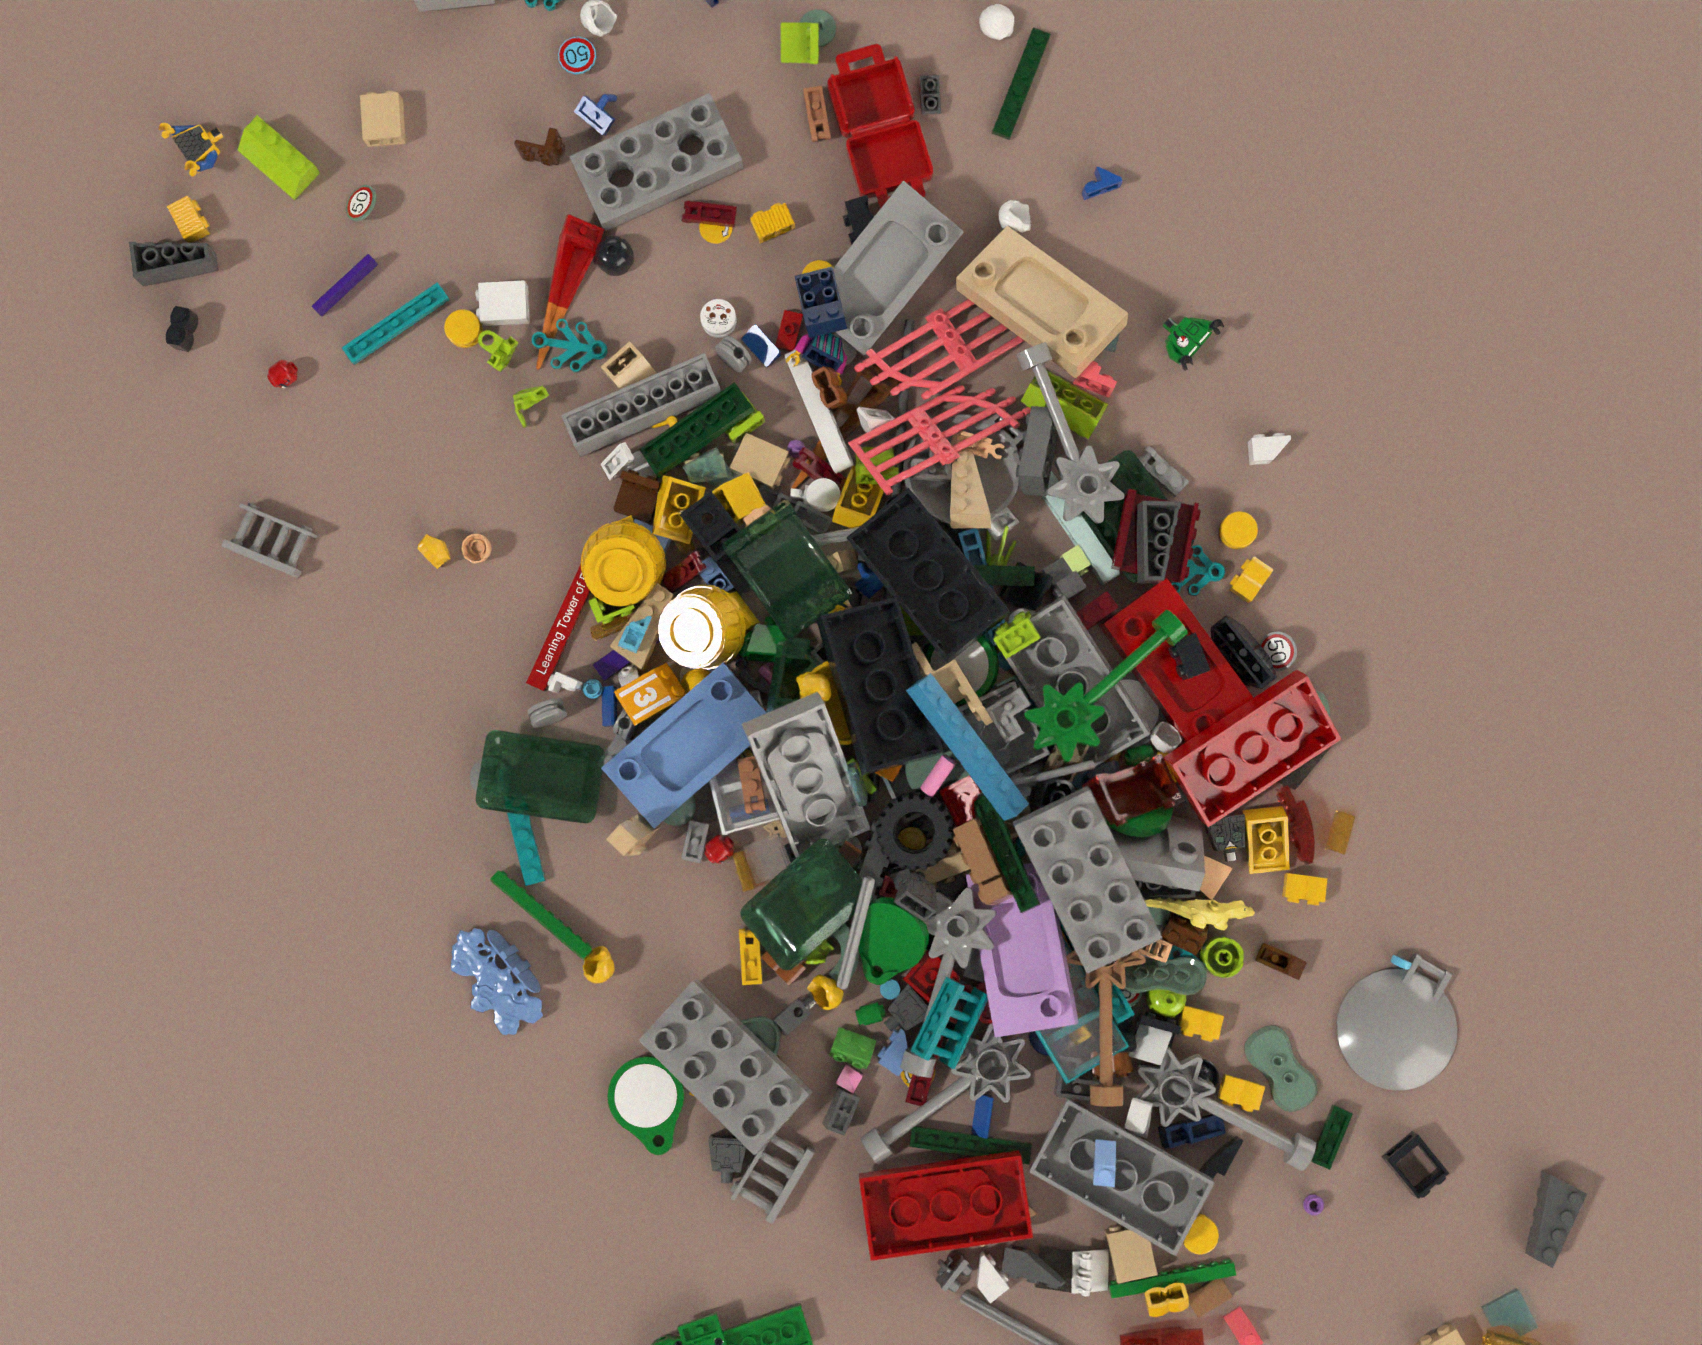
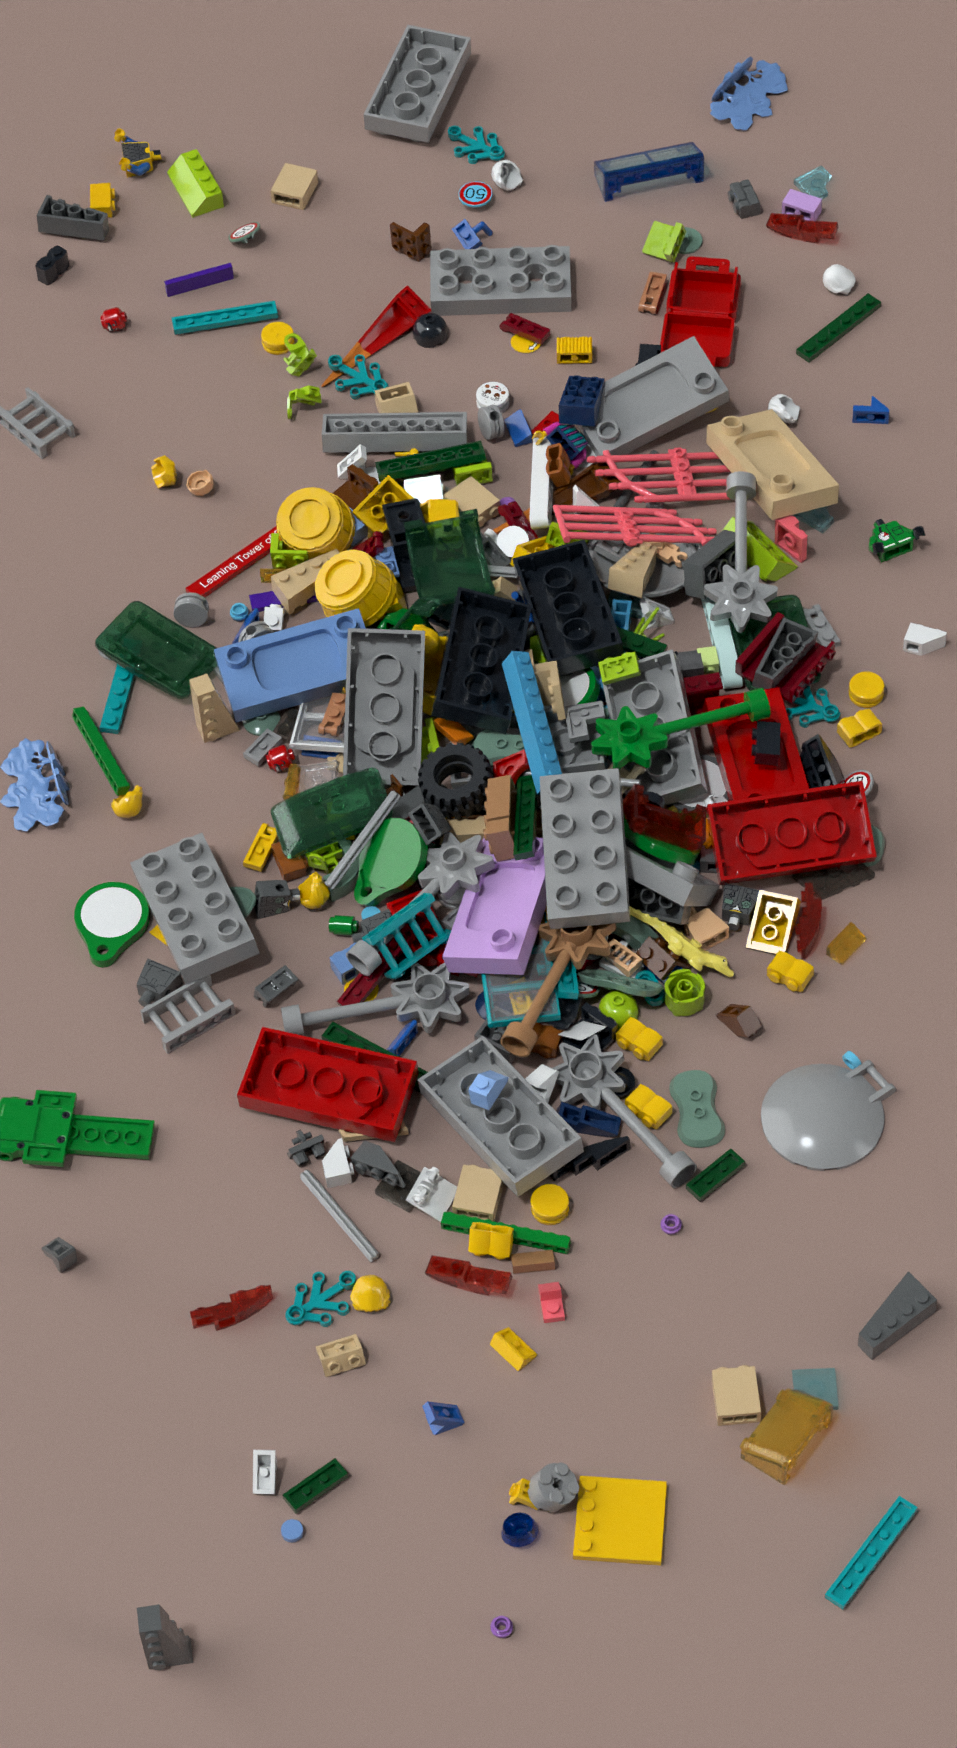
camera: 25 degrees right, 30 degrees down
(503, 303) = (321, 331): white brick -> none
(562, 680) = (218, 592): white bracket -> none
(634, 634) = (296, 571): medium azure slope -> none
(650, 694) = (281, 615): light orange slope -> none
(849, 1078) = (298, 967): bright pink slope -> none
(852, 1048) = (311, 946): bright green bracket -> none
(857, 784) = (424, 730): clear light blue tile -> none
(930, 94) = (756, 310): dark grey slope -> none
(938, 775) = (499, 742): bright pink brick -> none
(1401, 1149) = (779, 1207): black window -> none

